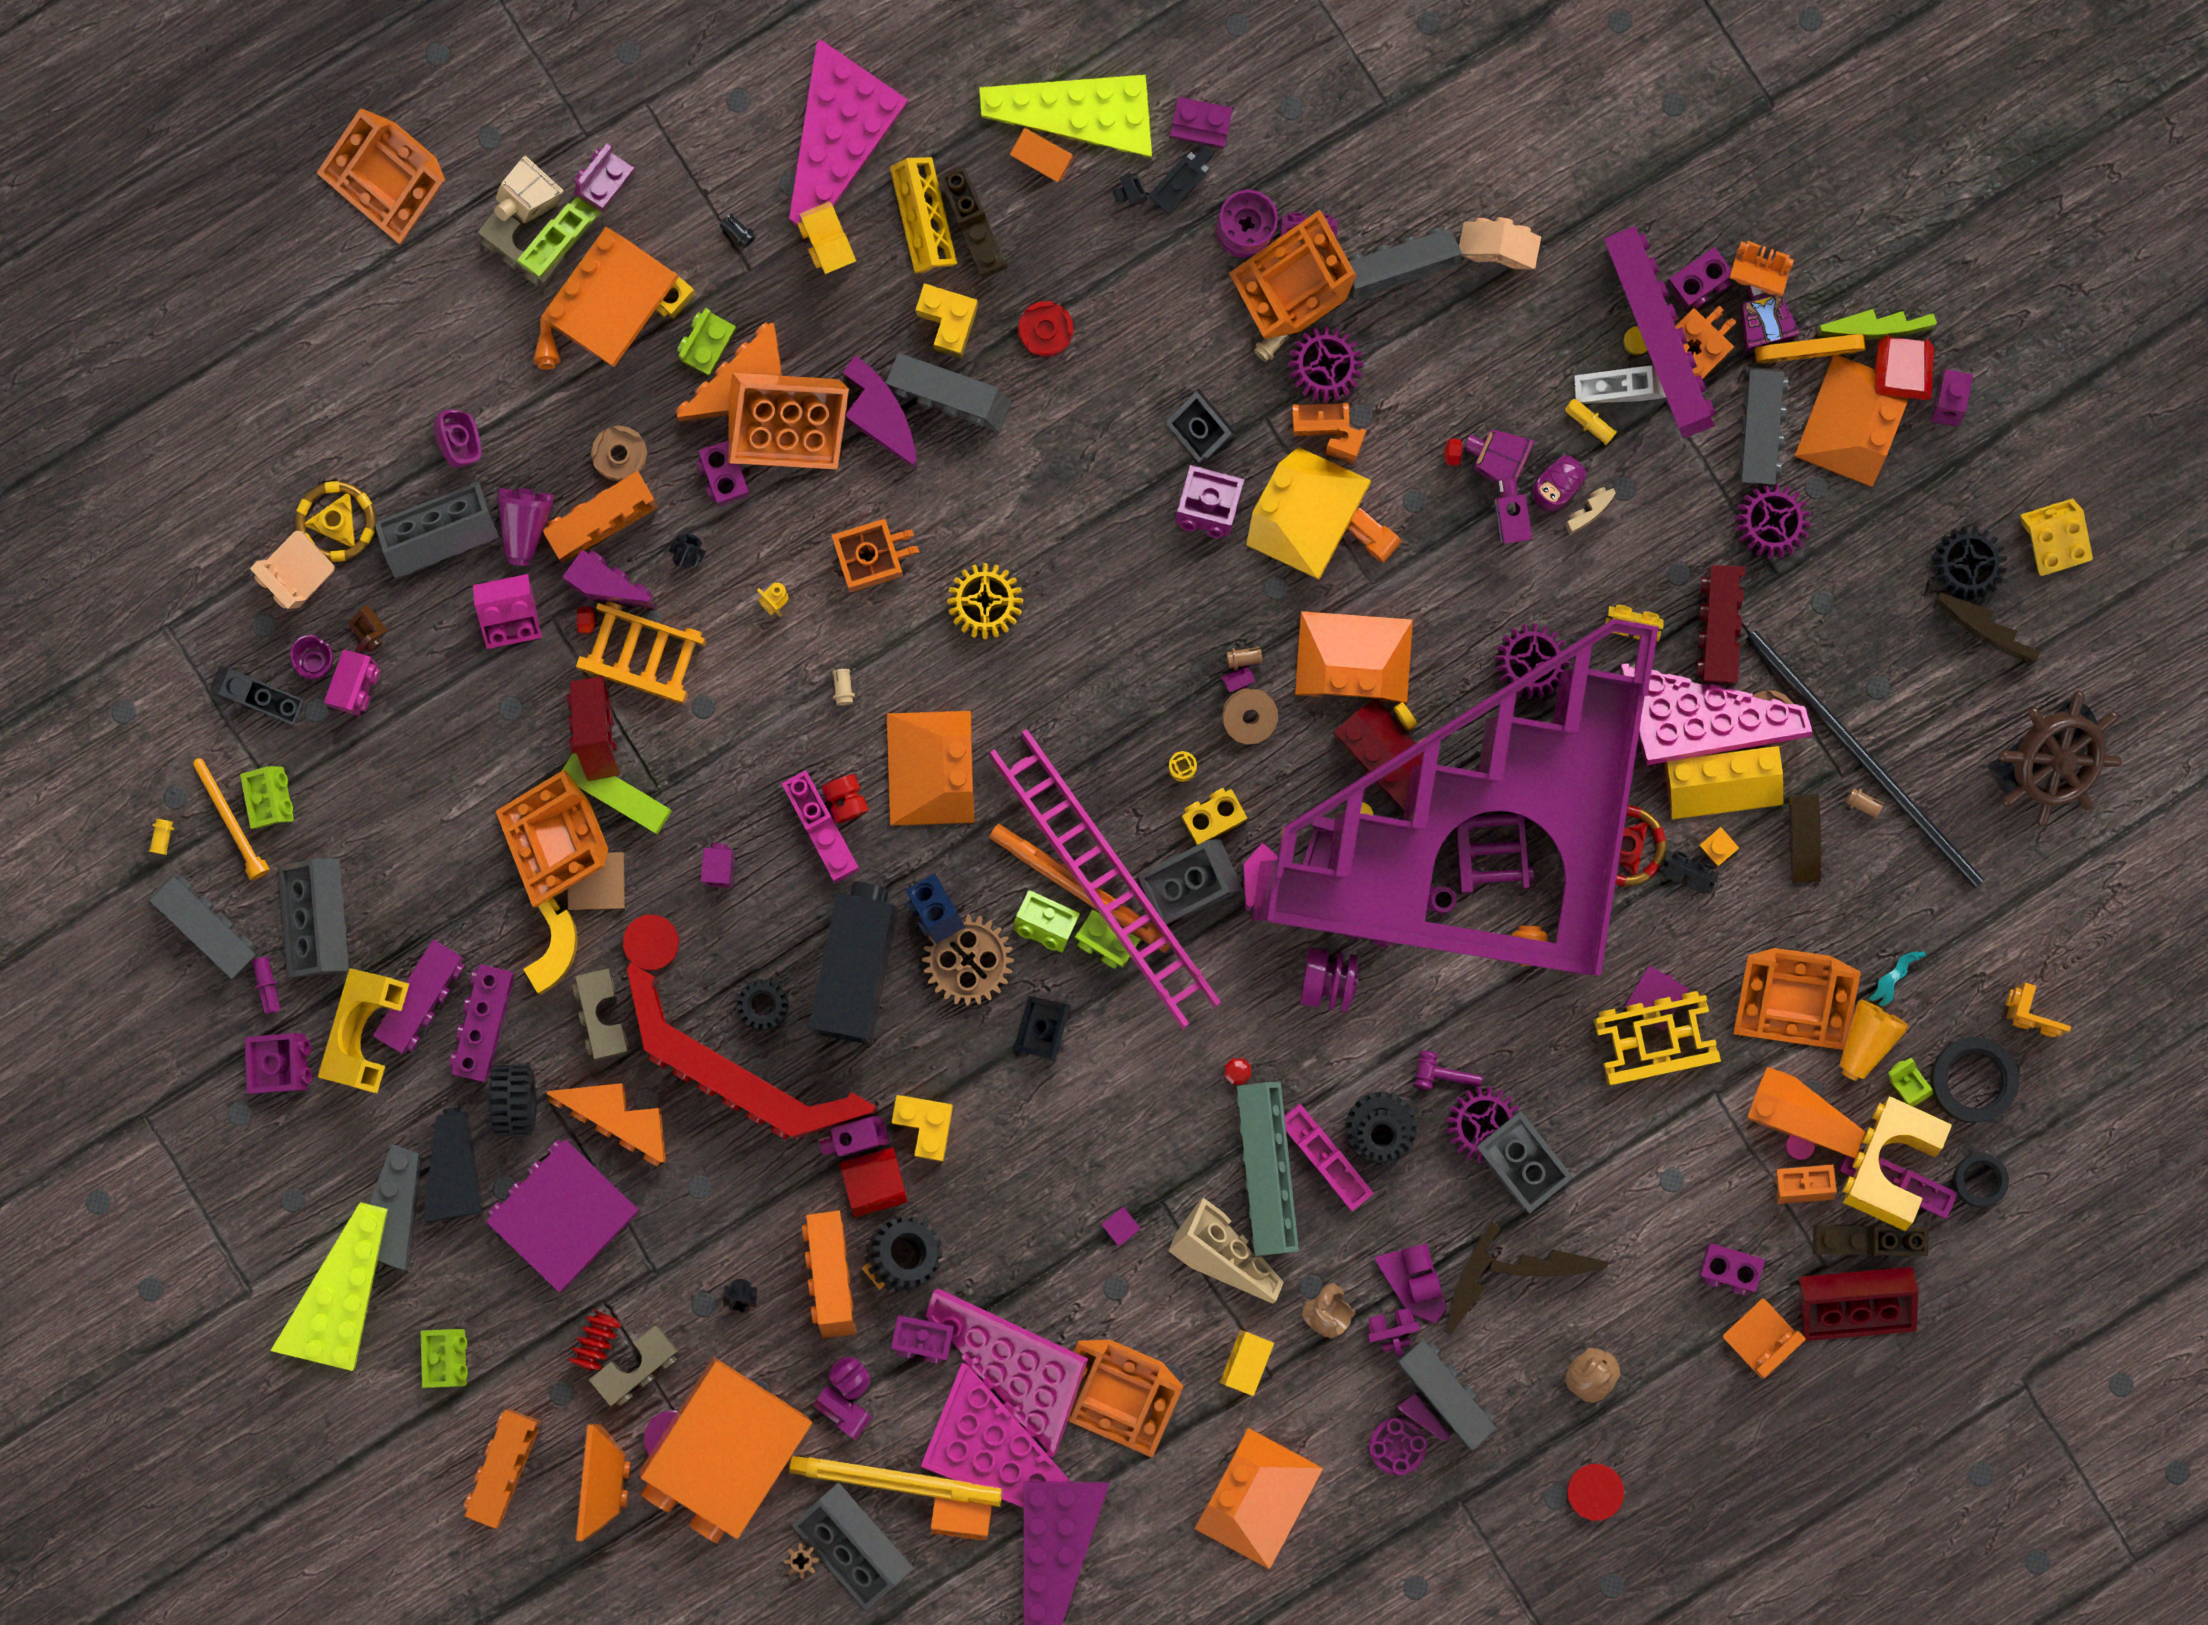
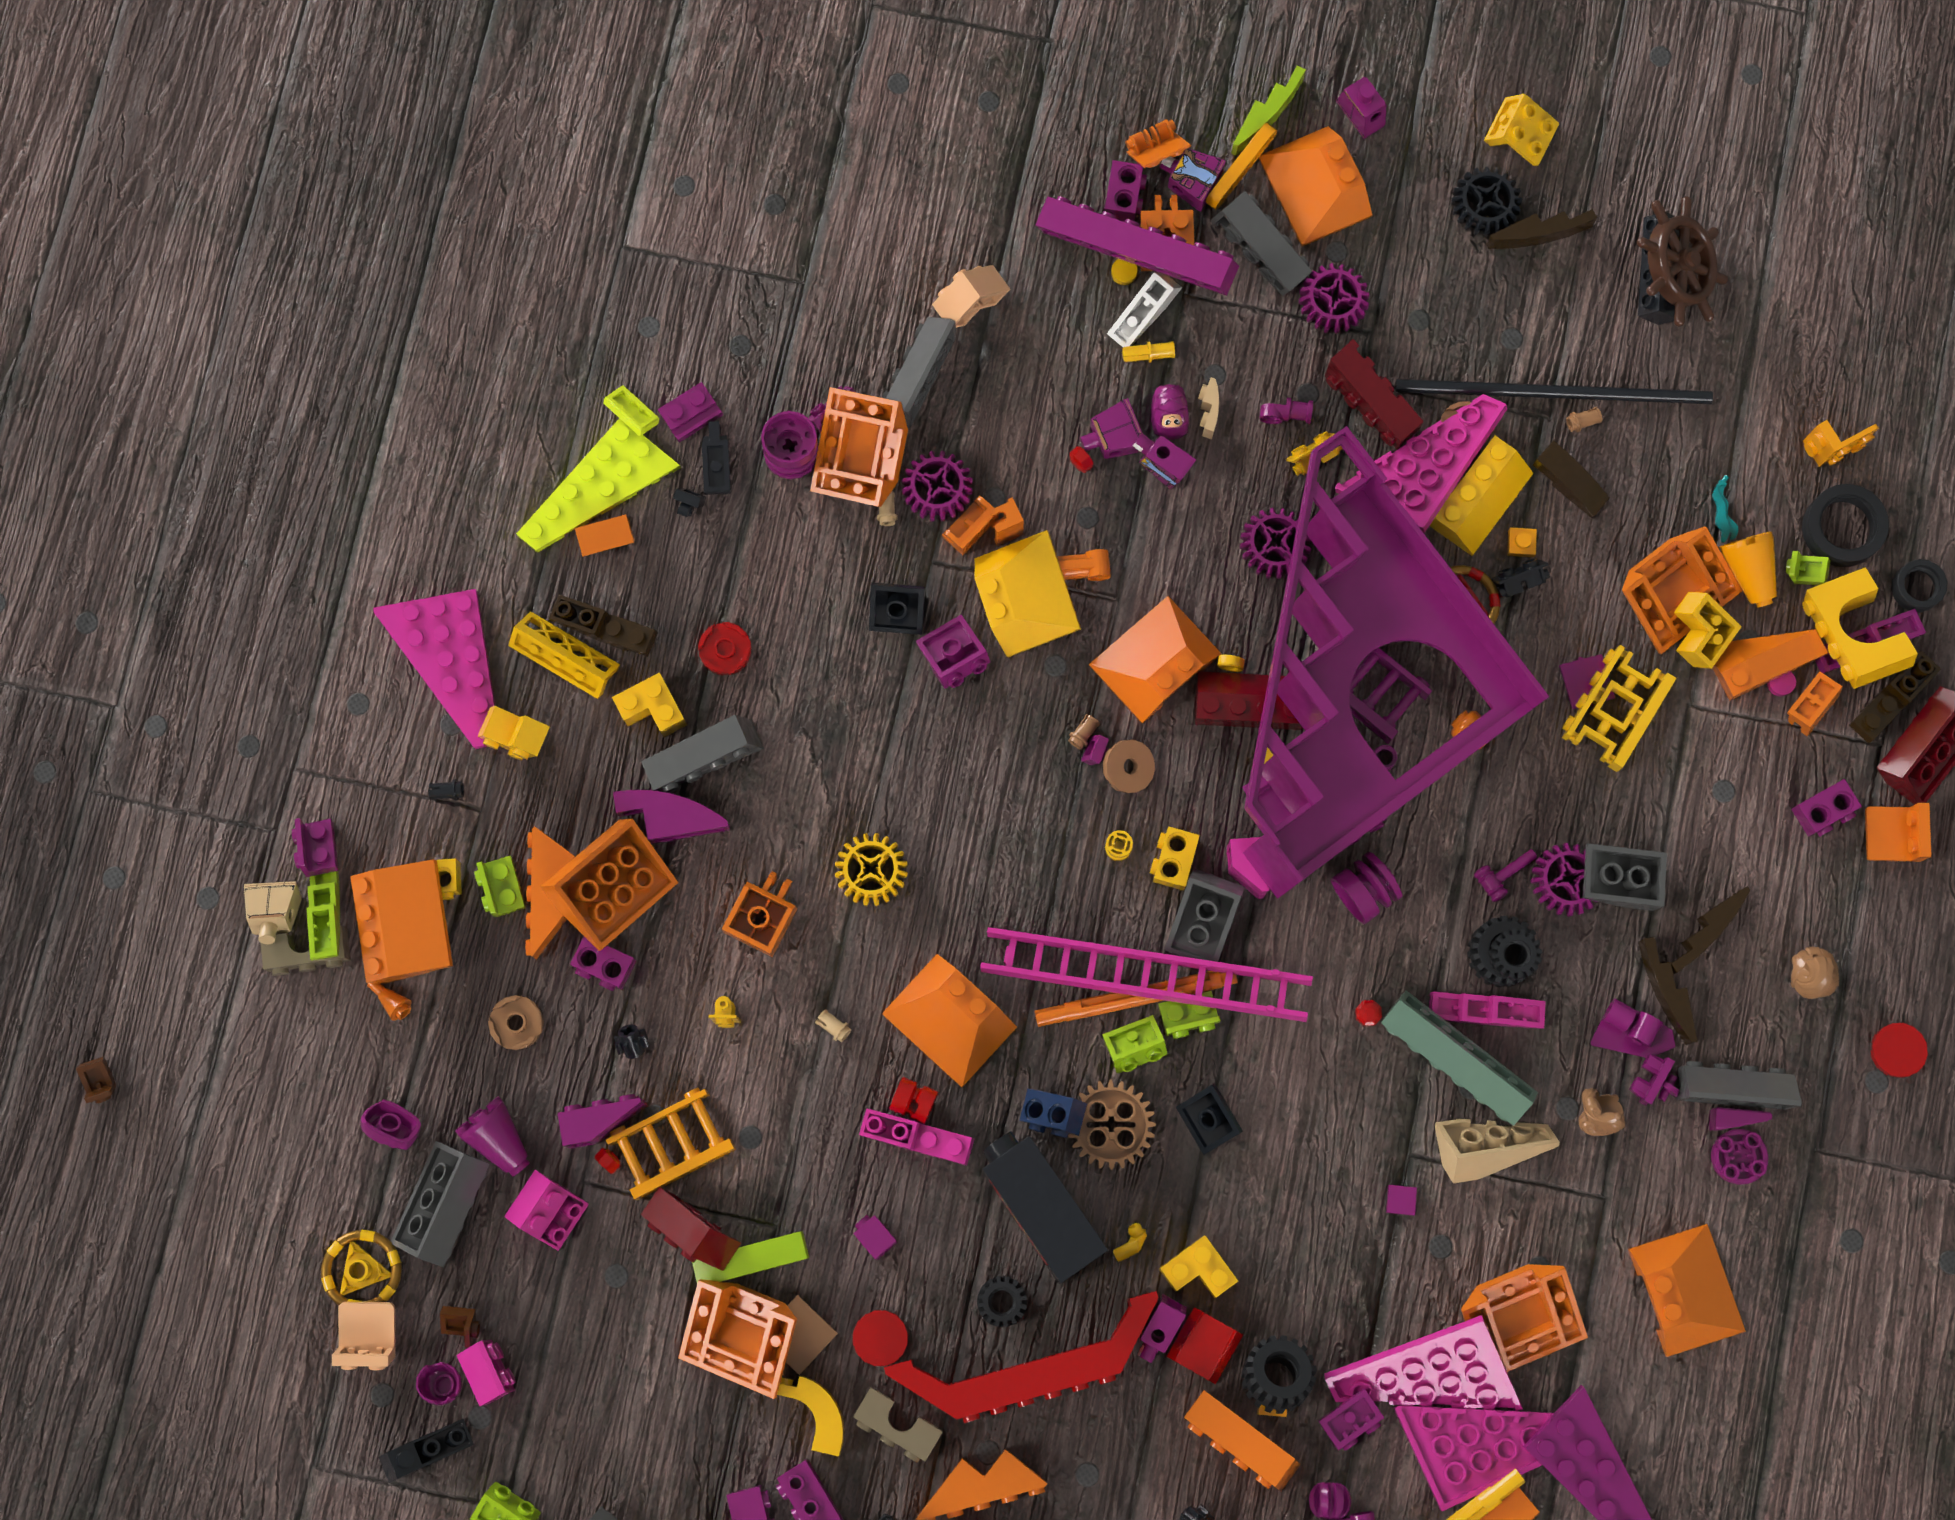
camera: 45 degrees left, 5 degrees down
(282, 194) = (96, 1080): none -> reddish brown bracket
(383, 173) = (155, 995): orange slope -> none
(600, 517) = (547, 1078): orange wedge -> none
(897, 1061) = (1134, 1245): none -> yellow arm
(1157, 78) = (631, 410): none -> neon yellow plate
(1246, 1362) = (1582, 1205): yellow hinge -> none
(1650, 574) = (1295, 410): none -> magenta connector
(1785, 1052) = (1710, 629): none -> yellow brick
(1904, 368) = (1314, 118): slope -> none

